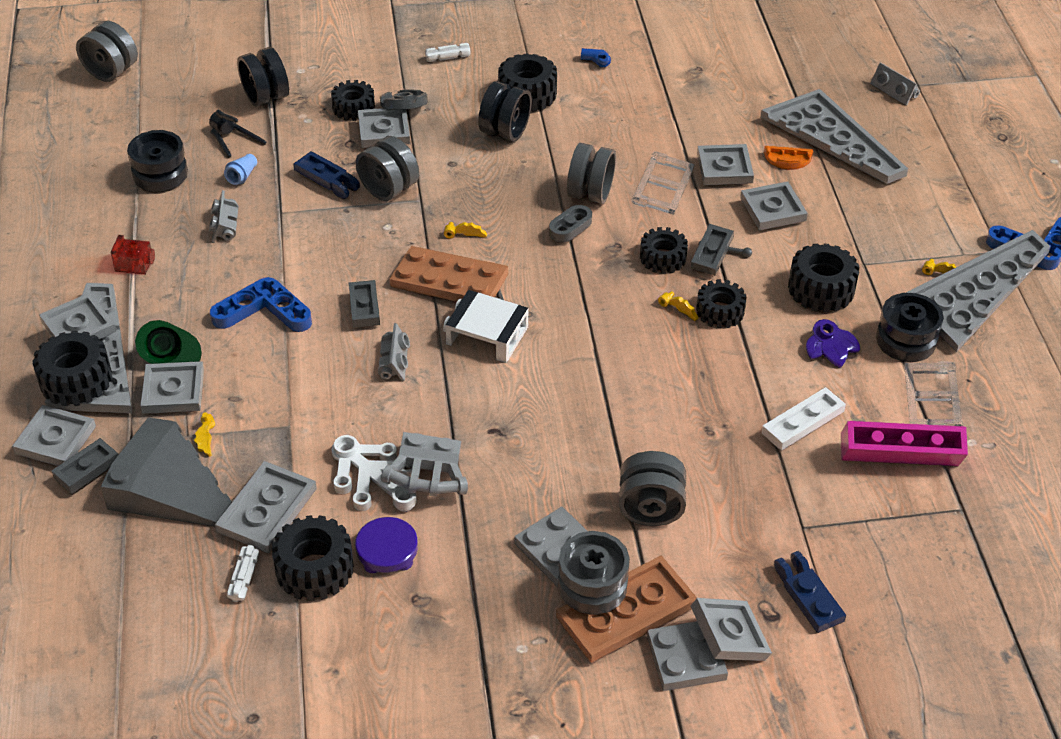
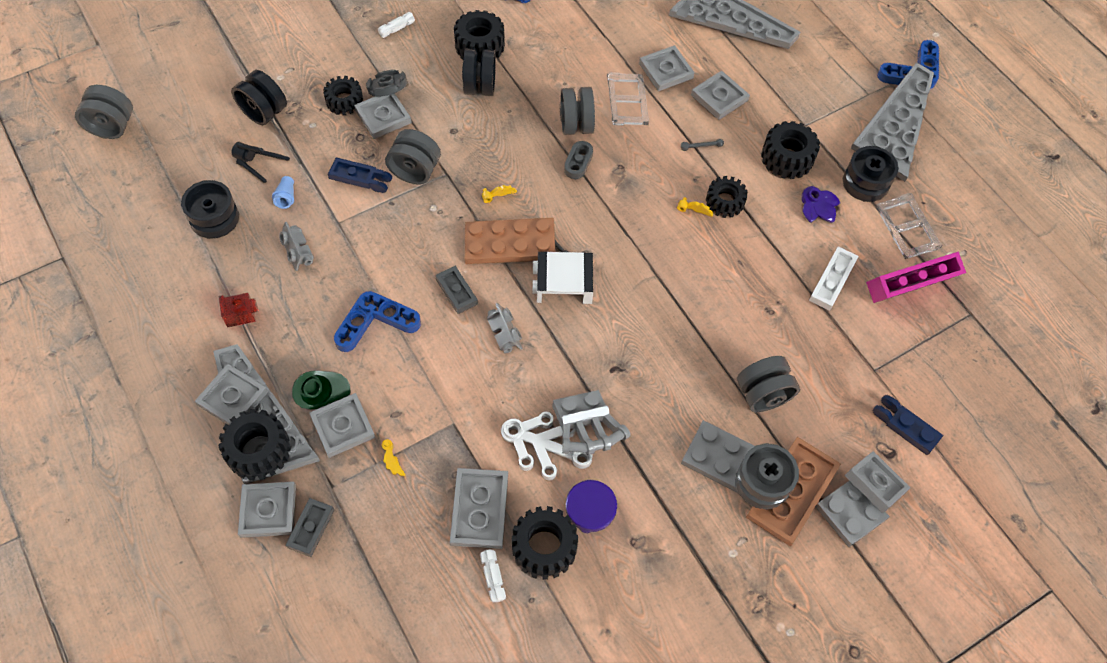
camera: 25 degrees left, 15 degrees up
(163, 478) = (381, 513): dark grey slope -> none
(663, 260) = (660, 171): black tyre -> none
(712, 249) = (697, 150): dark grey plate -> none
(788, 157) = (706, 47): orange tile -> none
(930, 267) = (865, 112): yellow piece -> none

